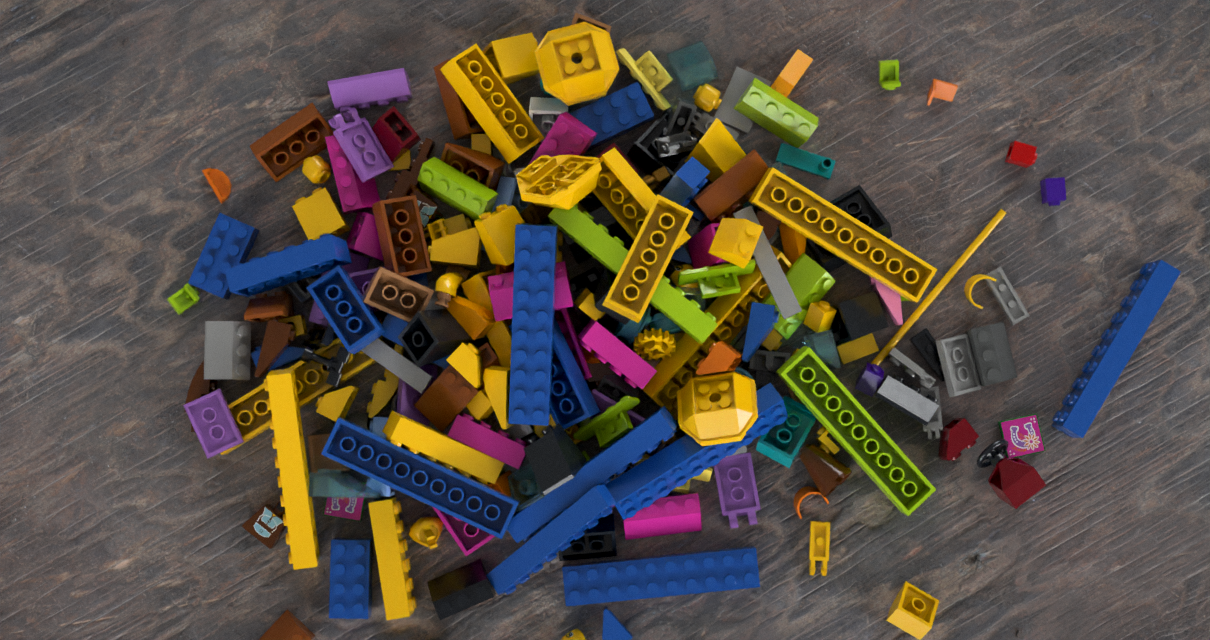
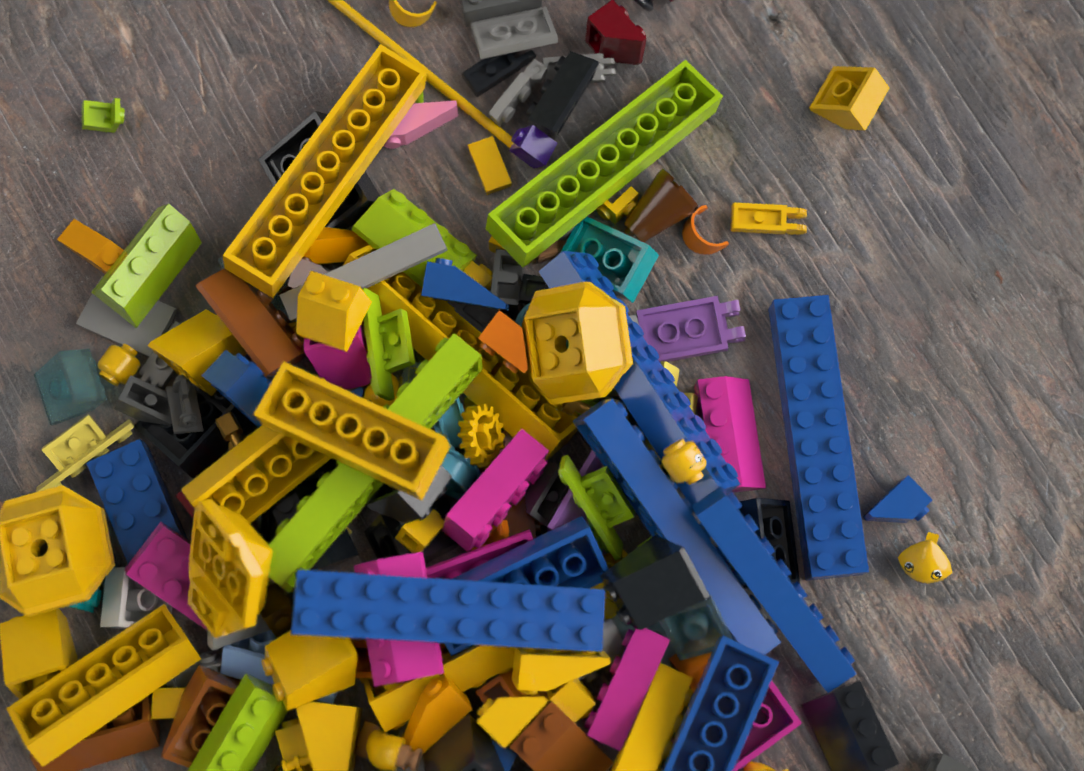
camera: 90 degrees left, 10 degrees down
(632, 479) = (684, 462): none -> yellow head
(805, 161) = (220, 229): teal piece -> none
(819, 316) = (443, 208): yellow brick -> none
(824, 347) = (482, 200): clear light blue slope -> none
(857, 318) = (448, 168): black slope -> none
(941, 90) = (130, 48): orange bracket -> none

